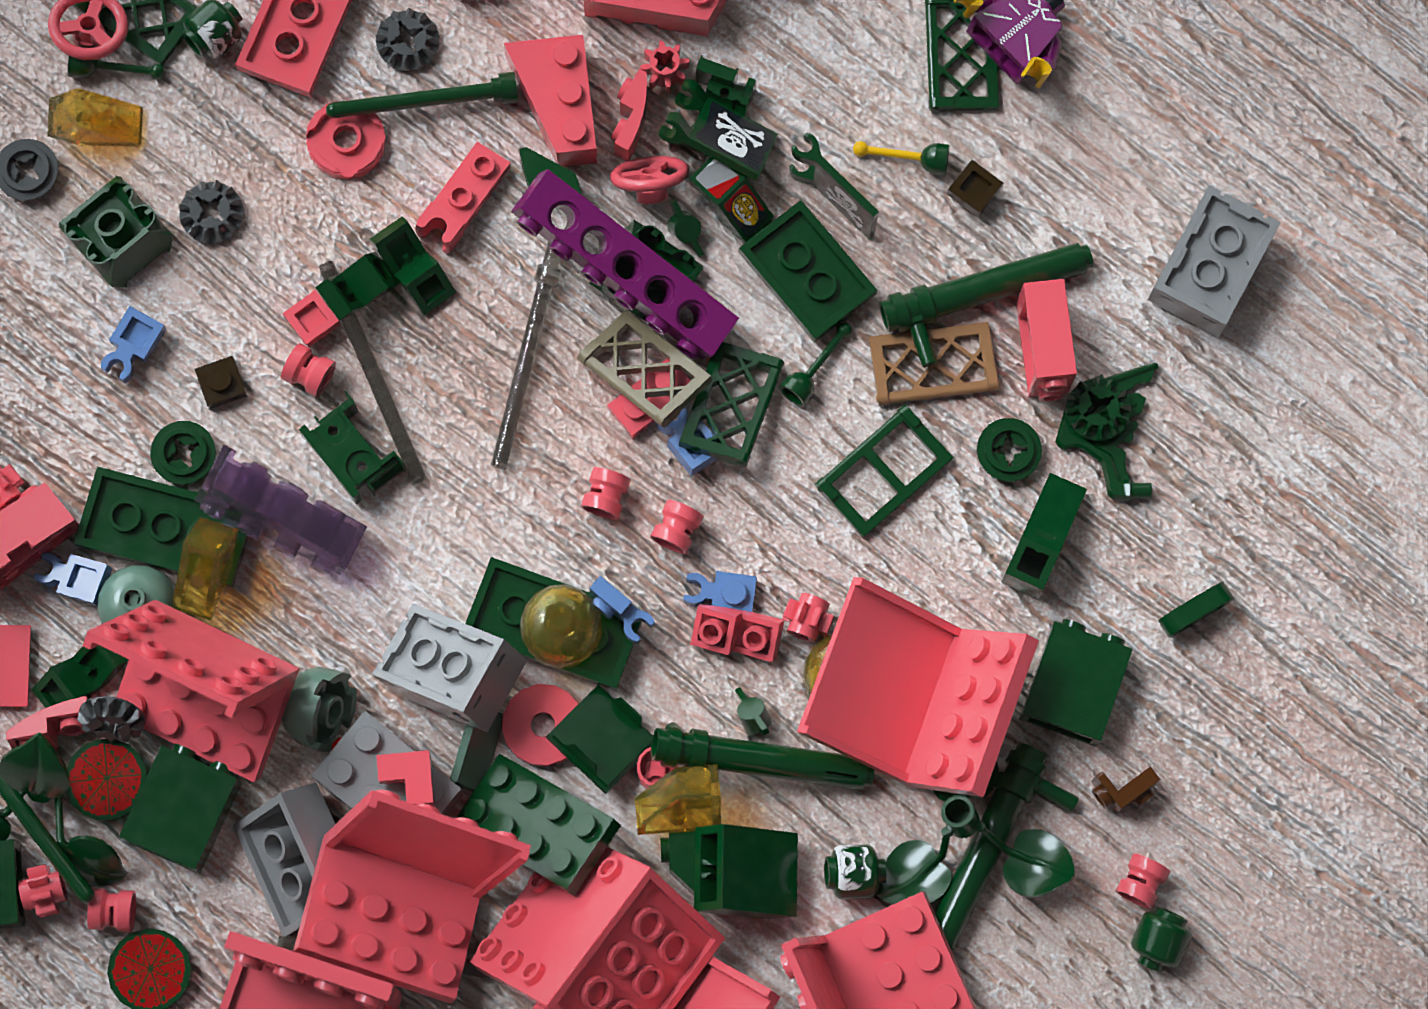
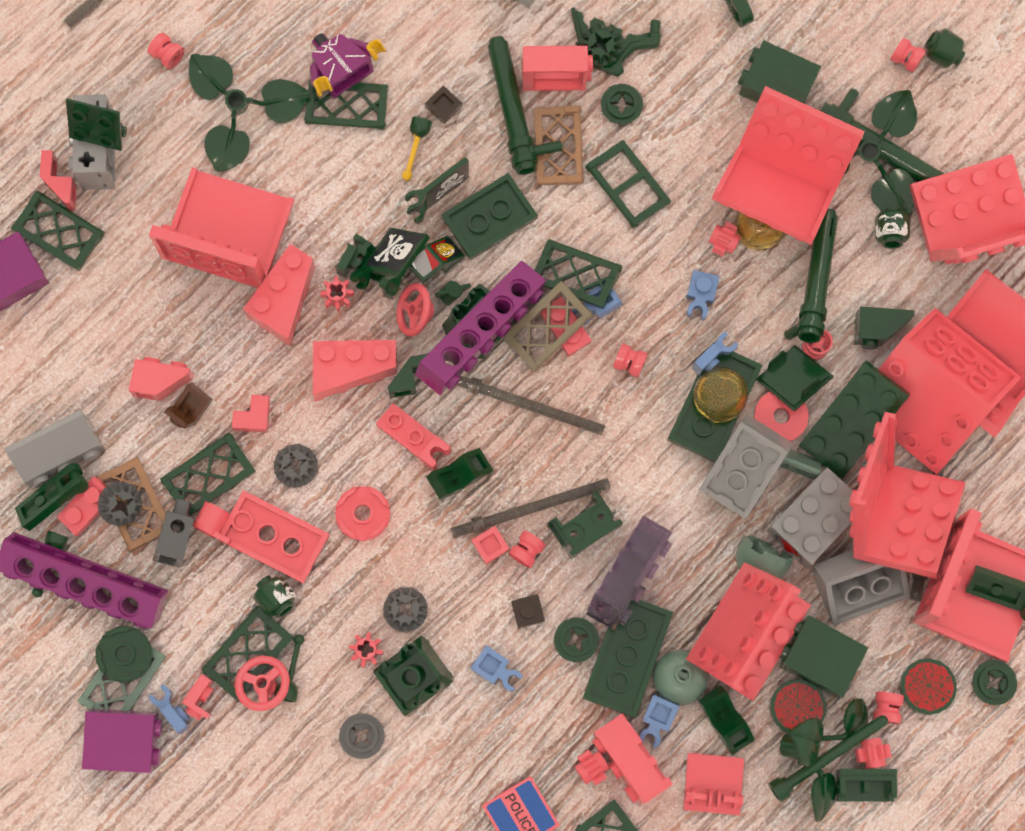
camera: 85 degrees left, 0 degrees up
(51, 722) = (765, 749): coral slope -> none
(94, 119) = (331, 684): clear yellow slope -> none
(111, 718) = (763, 696): dark grey gear -> none
(139, 154) = (370, 656): none -> coral gear
(204, 567) = (664, 625): clear yellow slope -> none
(357, 285) = (472, 509): dark green slope -> none
(411, 768) = (817, 493): coral piece -> none
(500, 89) = (340, 402): dark green piece -> none
(632, 106) = (362, 315): coral slope -> none
(677, 525) = (655, 316): coral wheel -> none
(680, 801) = (845, 327): clear yellow slope -> none
(737, 631) = (728, 285): coral slope -> none
(745, 871) = (893, 291): dark green brick -> none
(753, 714) = (784, 281): dark green piece -> none
(800, 386) = (567, 230): dark green hinge -> none
(1044, 536) = (683, 87): dark green slope -> none
(1136, 791) = (852, 56): reddish brown bracket -> none

